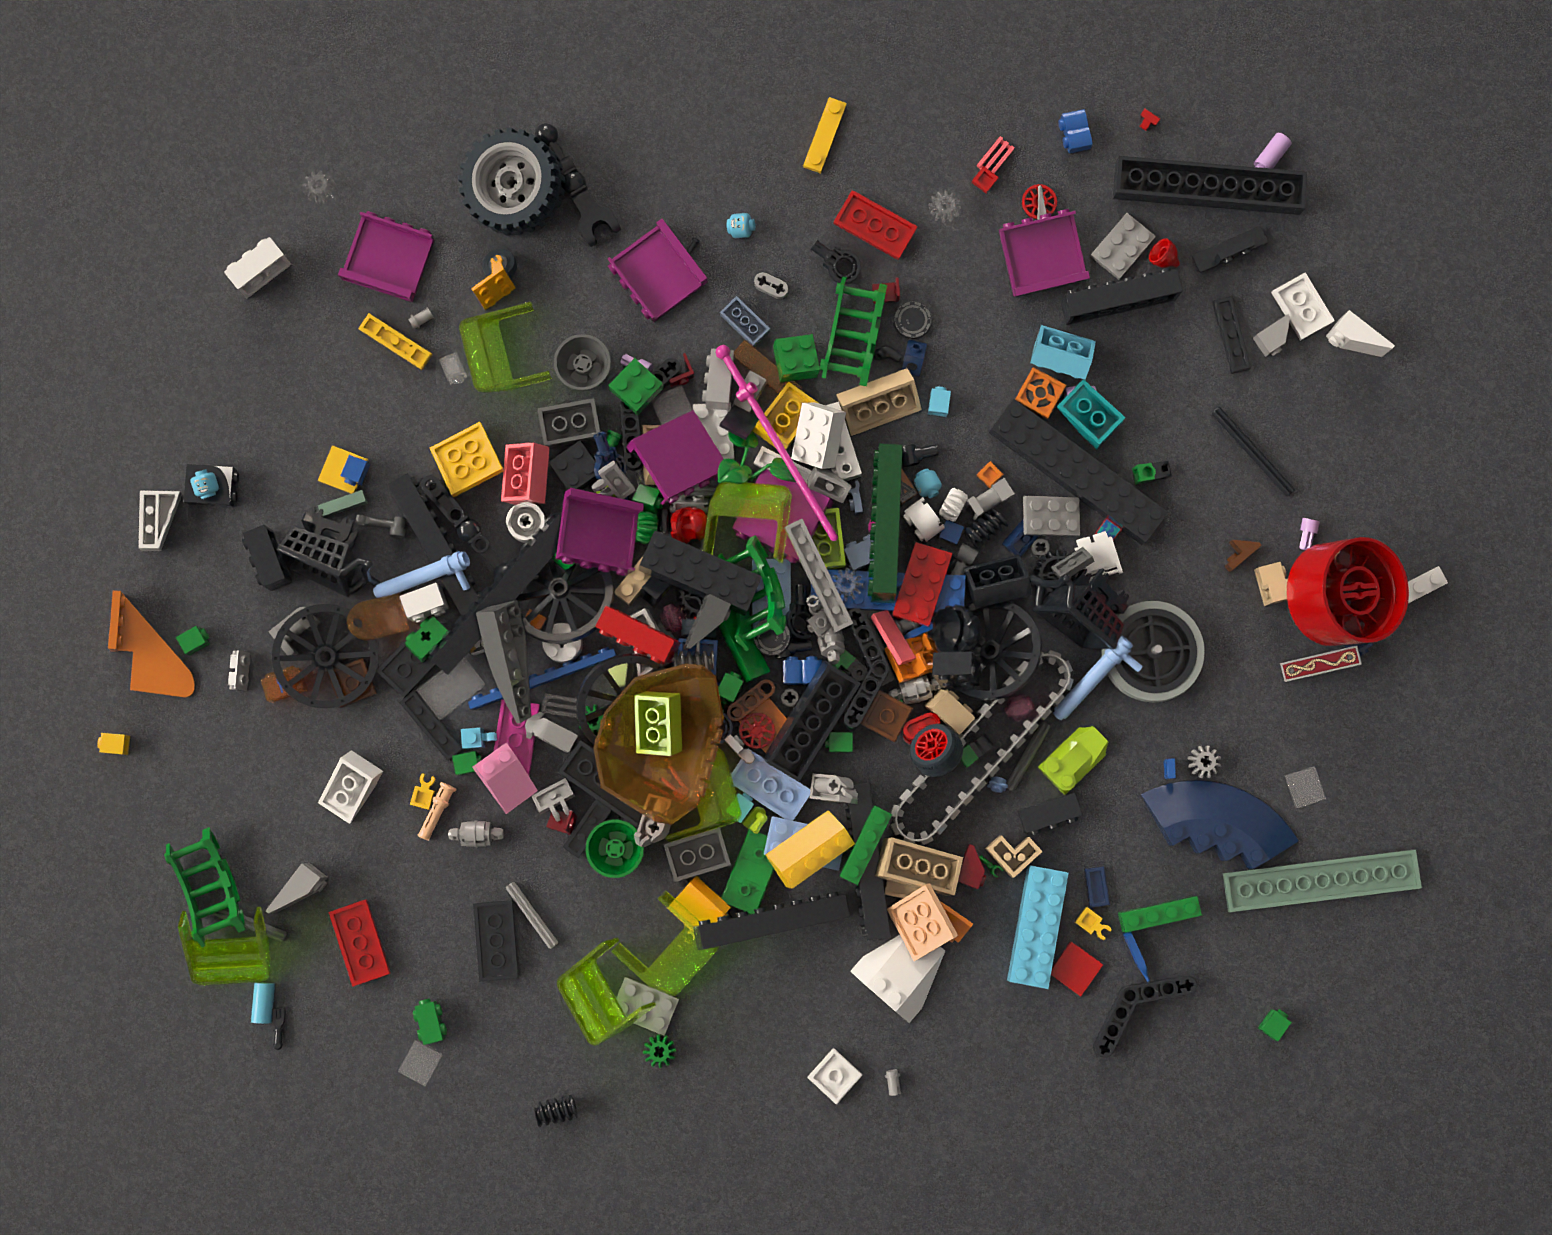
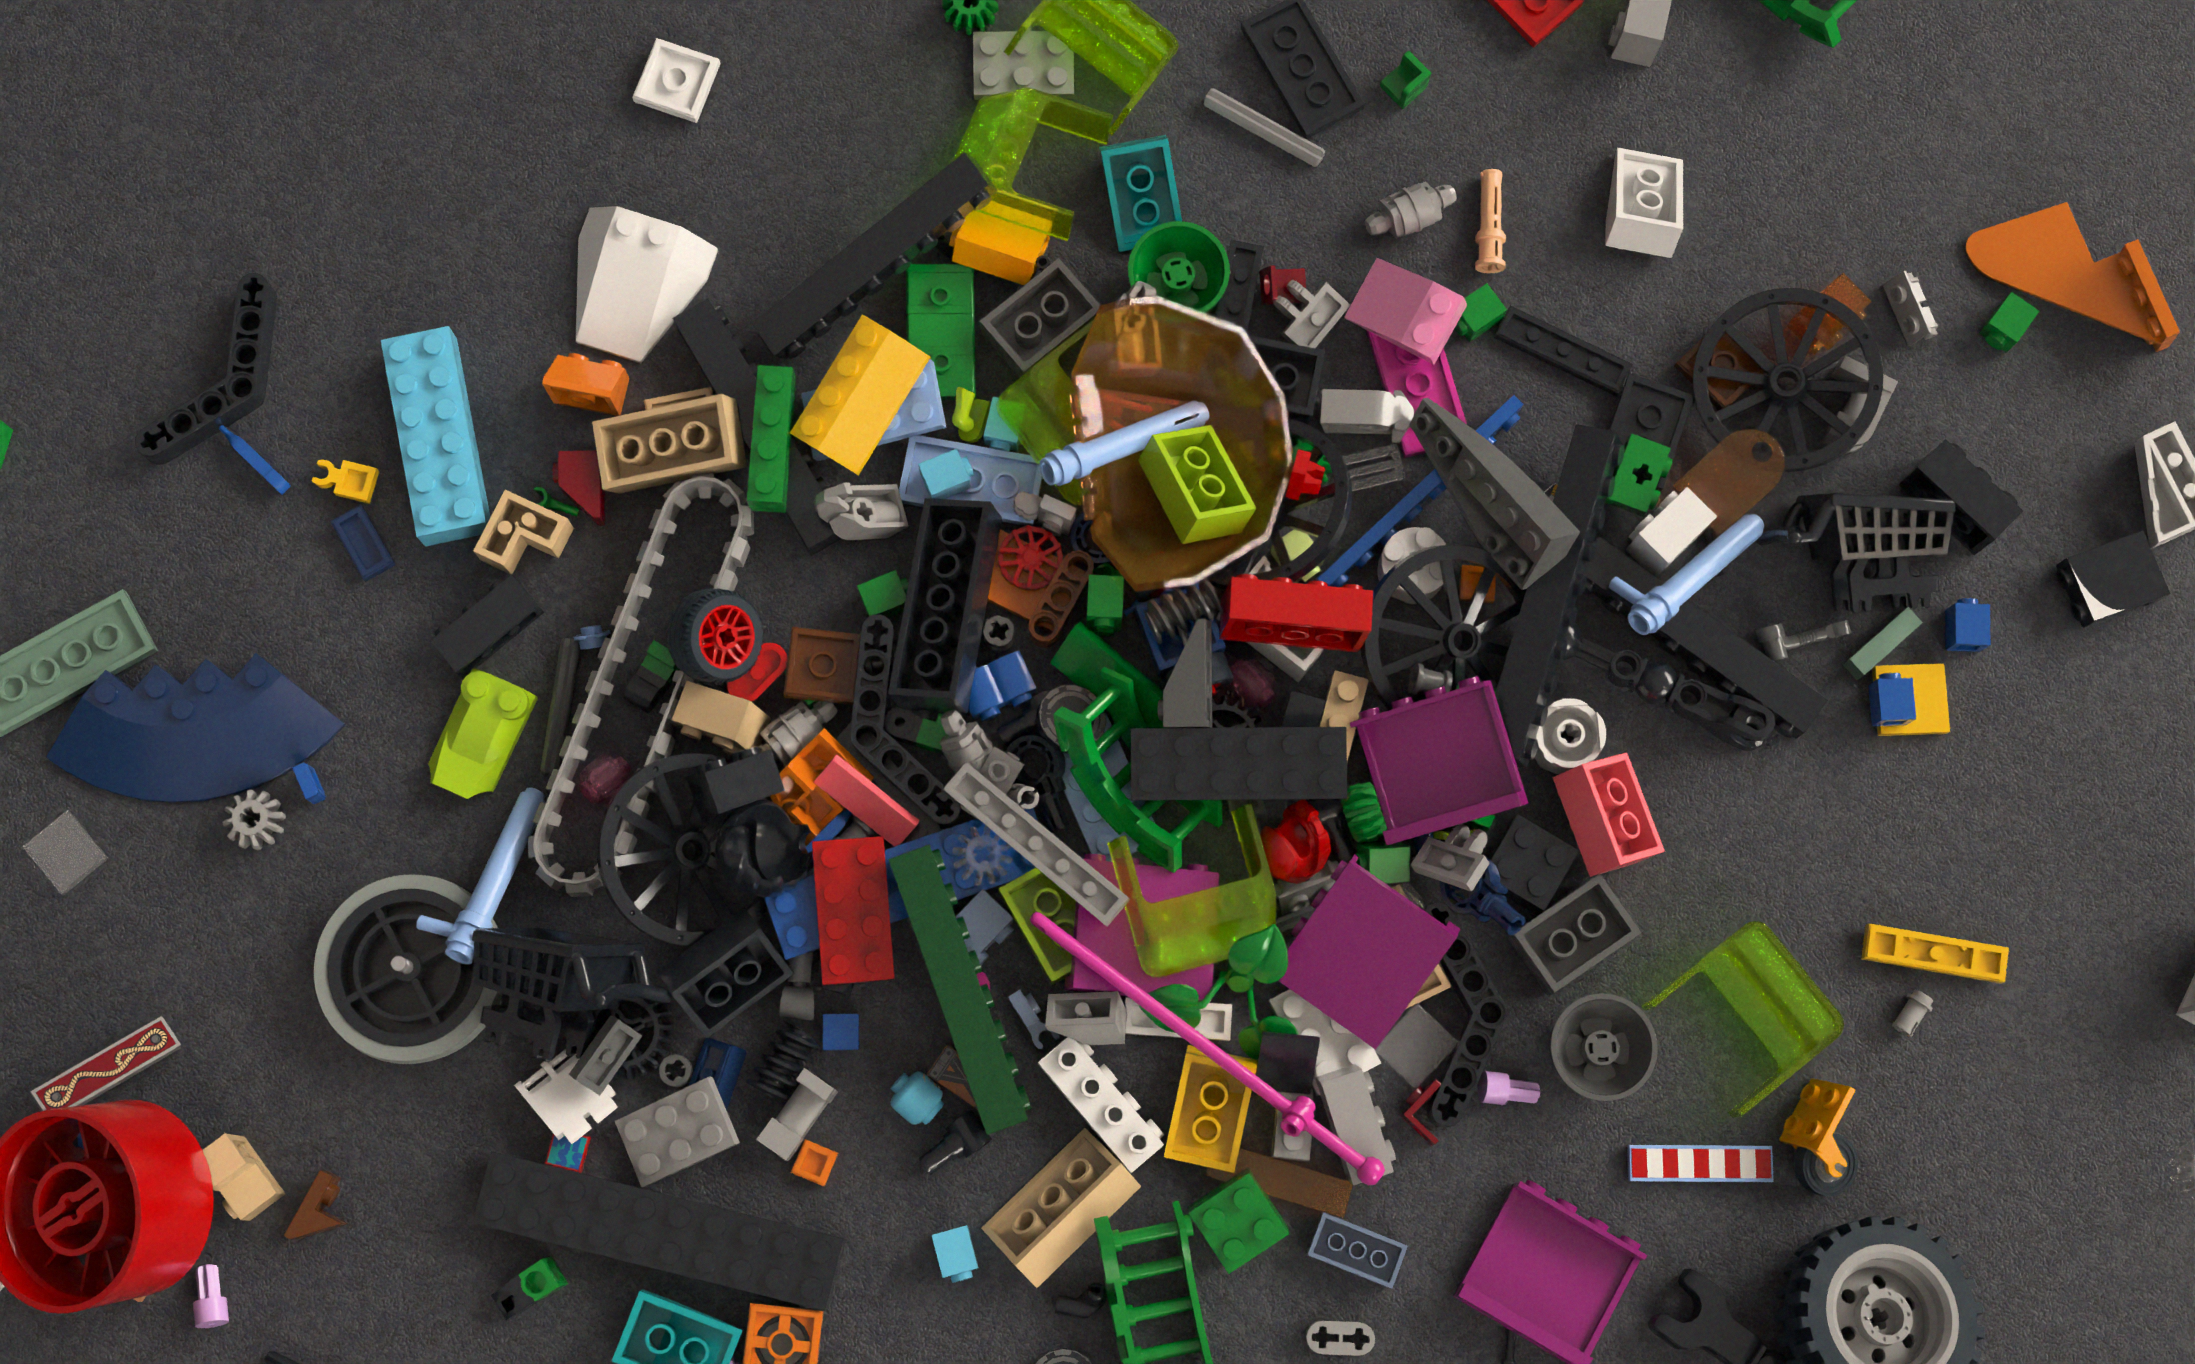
camera: 155 degrees right, 5 degrees down
(114, 743) = (2046, 114): yellow brick -> none
(204, 484) = (2125, 567): medium azure head -> none
(296, 493) = (1967, 626): none -> blue brick
(387, 256) = (2022, 1096): magenta panel -> none
(422, 795) = (1524, 236): yellow plate -> none
(445, 908) = (1406, 80): none -> green panel
(447, 692) = (1550, 423): clear tile -> none
(453, 368) = (1815, 948): clear brick -> none
(466, 459) = (1717, 800): yellow plate -> none
(475, 738) = (1482, 356): medium azure brick -> none
(559, 292) = (1699, 1163): none -> tile
(585, 575) = (1424, 680): none -> dark grey bush
(603, 703) = (1305, 476): none -> red tile
(613, 438) = (1488, 938): green bush -> none
(613, 906) = (1139, 187): none -> teal slope
(636, 386) = (1492, 1042): green brick -> none
(714, 757) = (1081, 458): none -> light blue cylinder
(782, 789) = (946, 474): none -> medium azure brick
(818, 435) = (1140, 1093): white brick -> none
(893, 1082) = (582, 113): light grey pin -> none
(914, 354) = (1033, 1319): dark blue bracket -> none
(922, 922) = (628, 356): light nougat plate -> none
(923, 519) = (897, 1026): white brick -> none
(953, 504) = (856, 1076): white gear -> none
(1075, 968) = (349, 399): red tile -> none
(1159, 914) = (239, 538): green brick -> none

